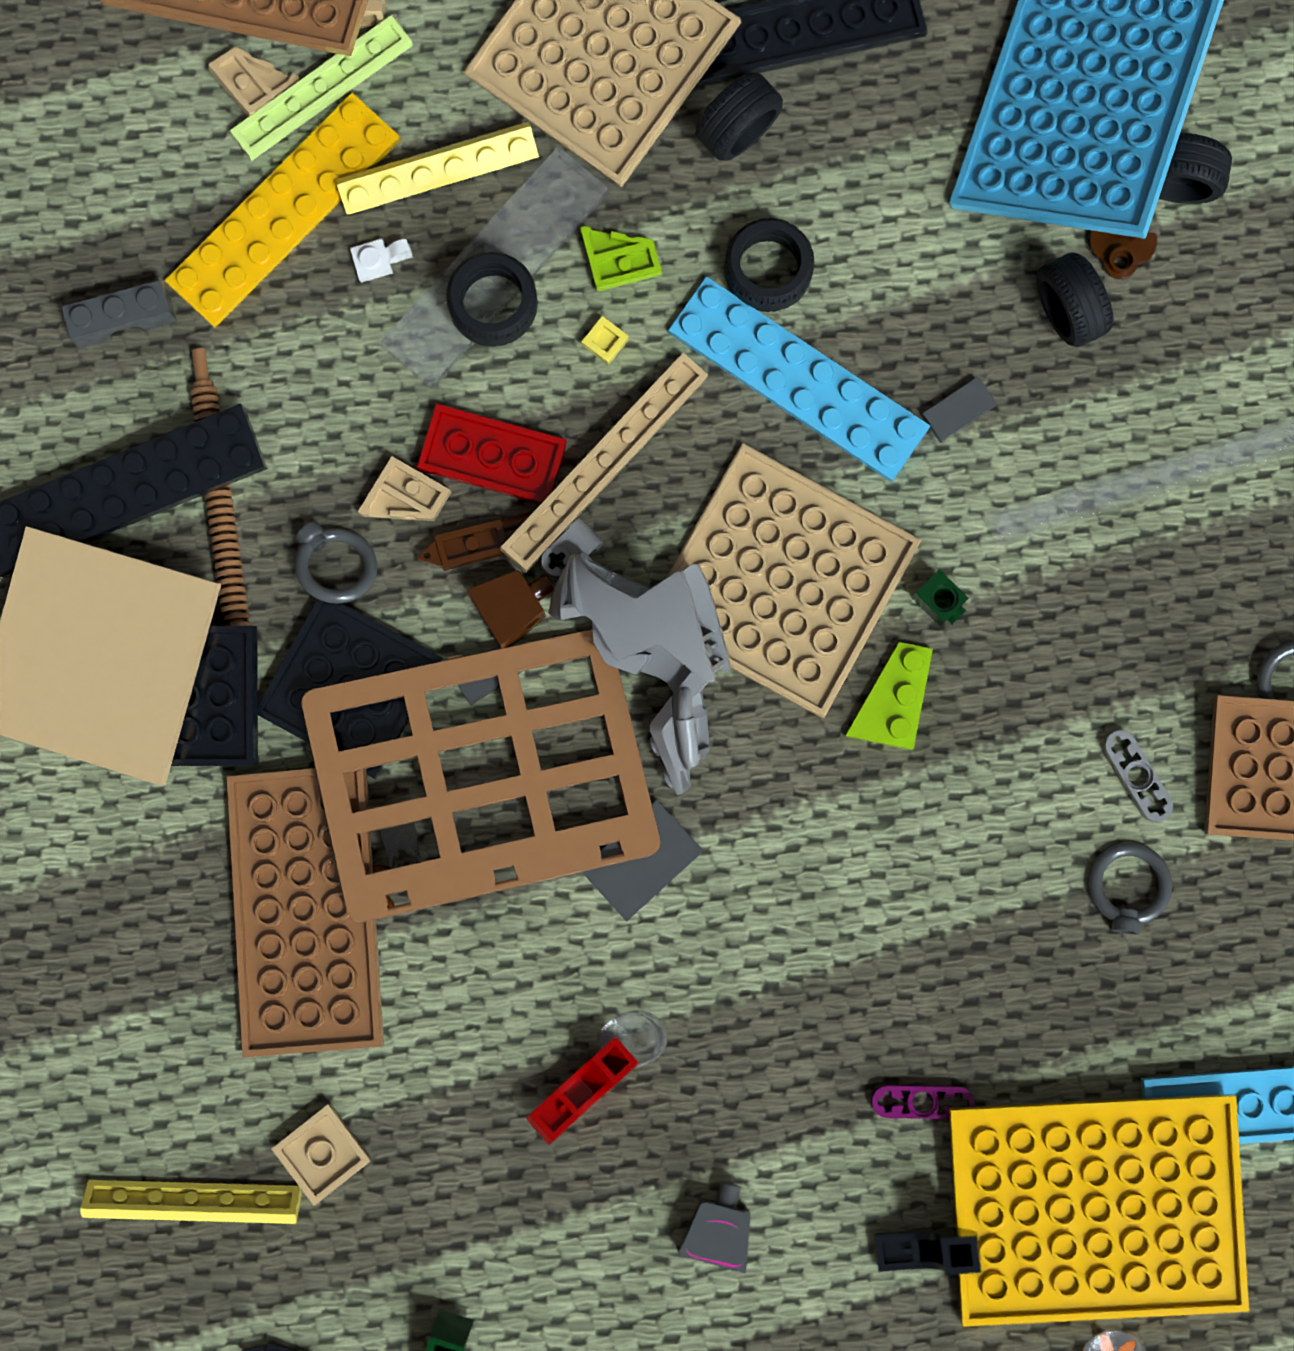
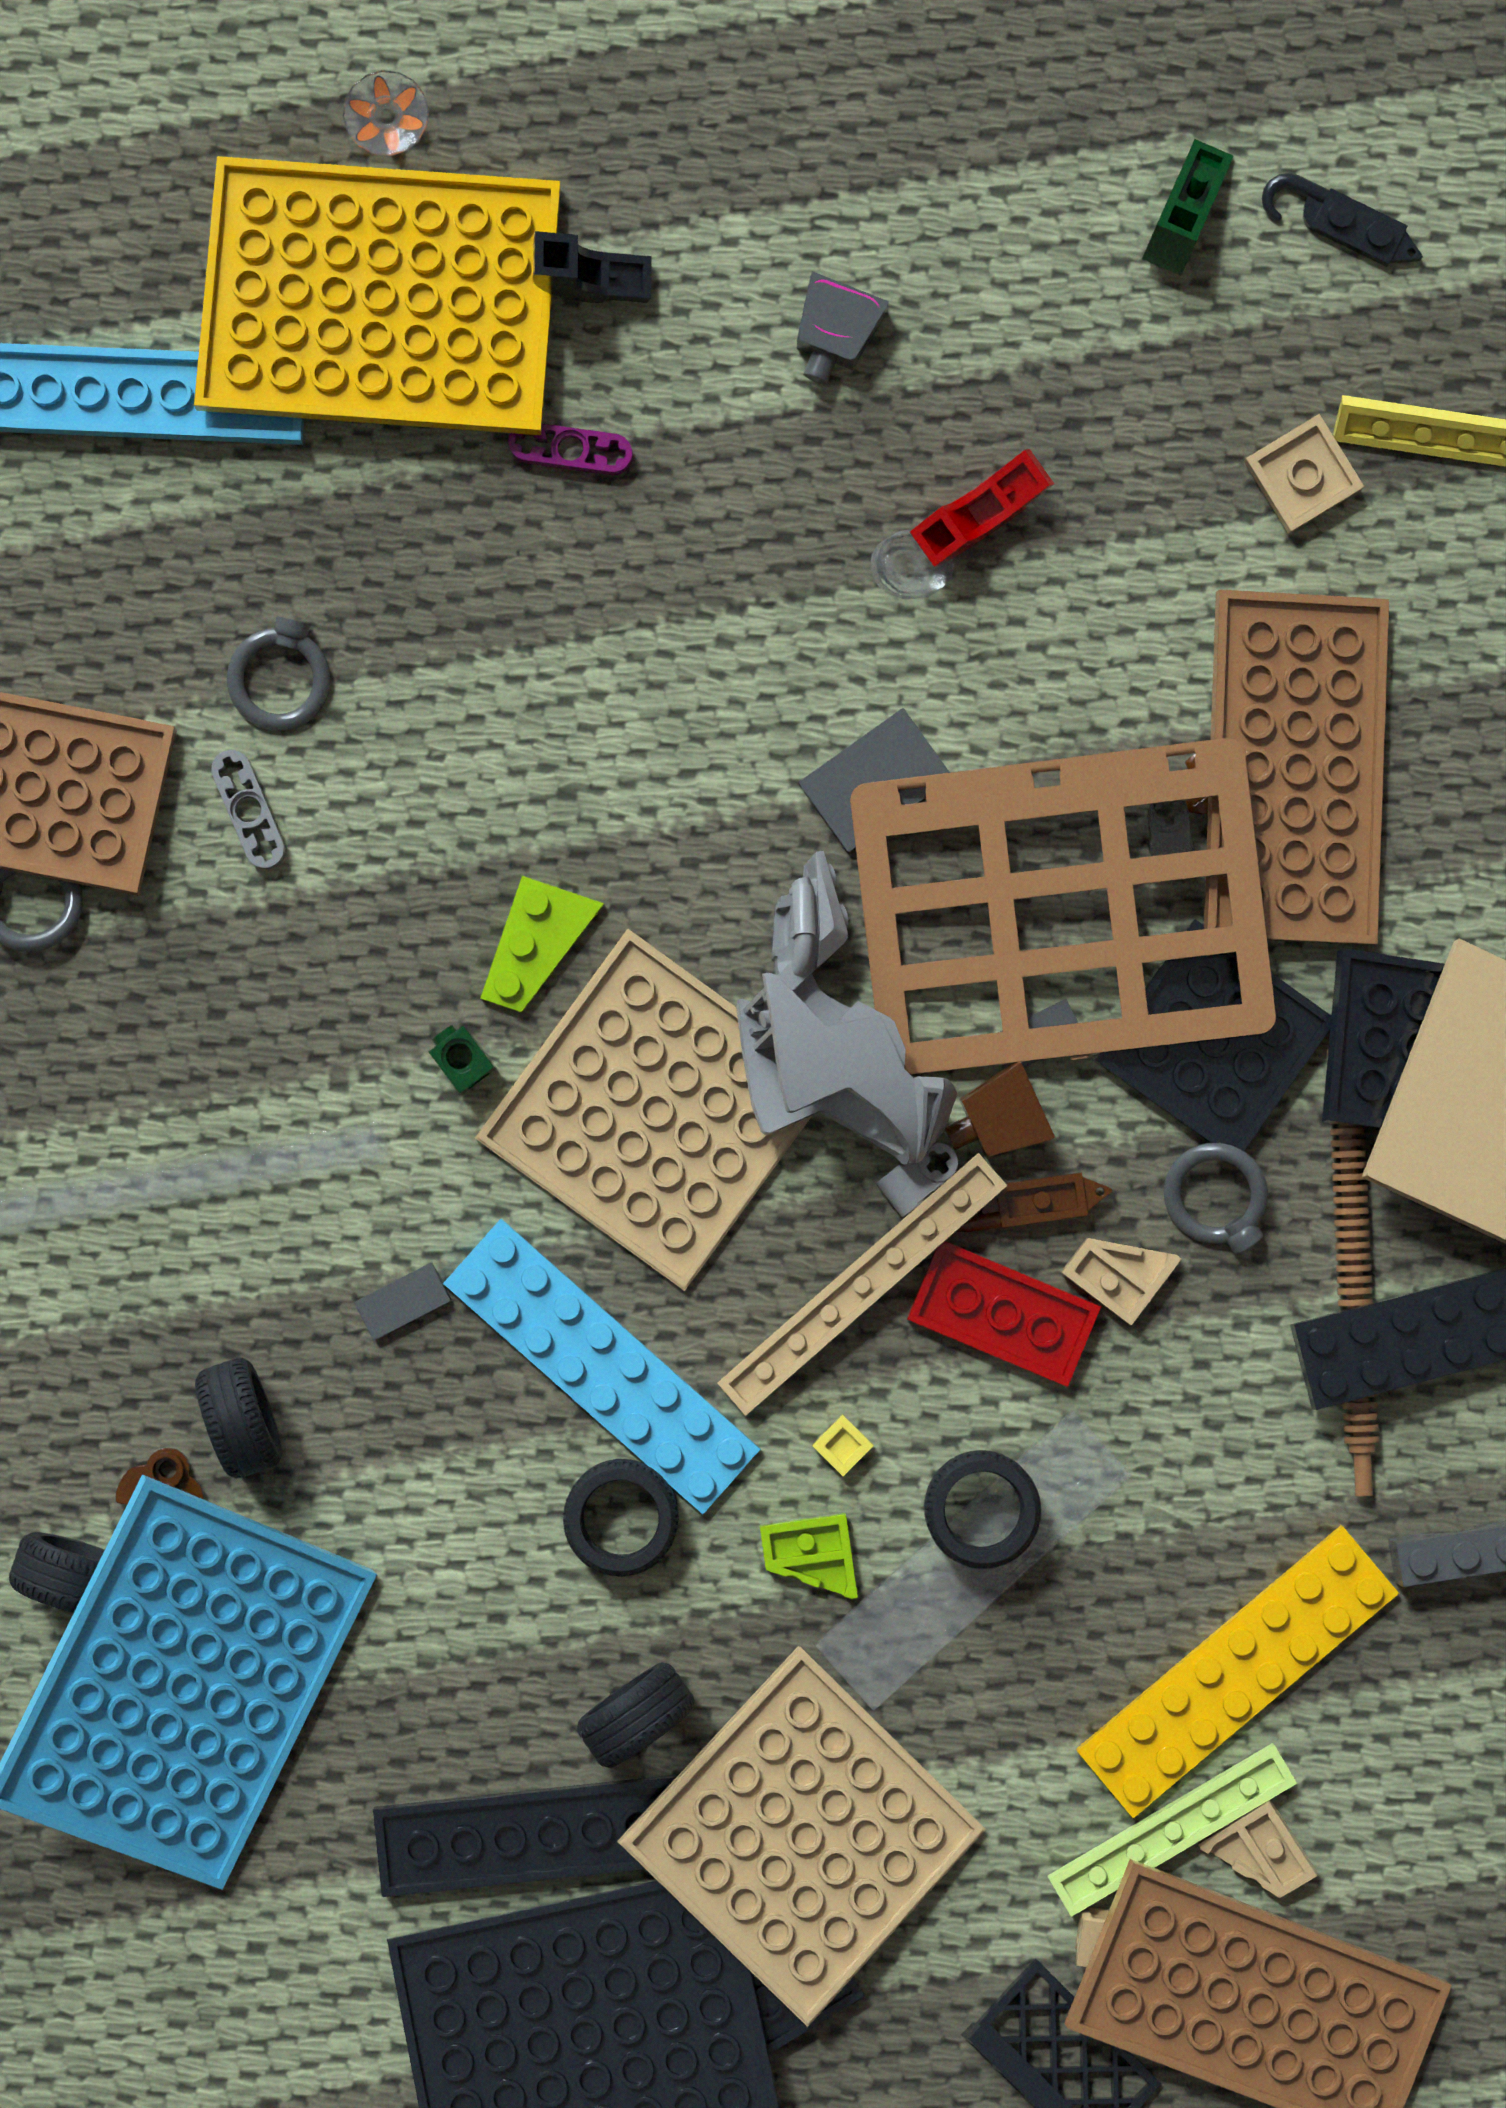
camera: 170 degrees left, 5 degrees up
(375, 260) = (1126, 1590): white plate -> none
(437, 168) = (1033, 1700): light yellow plate -> none

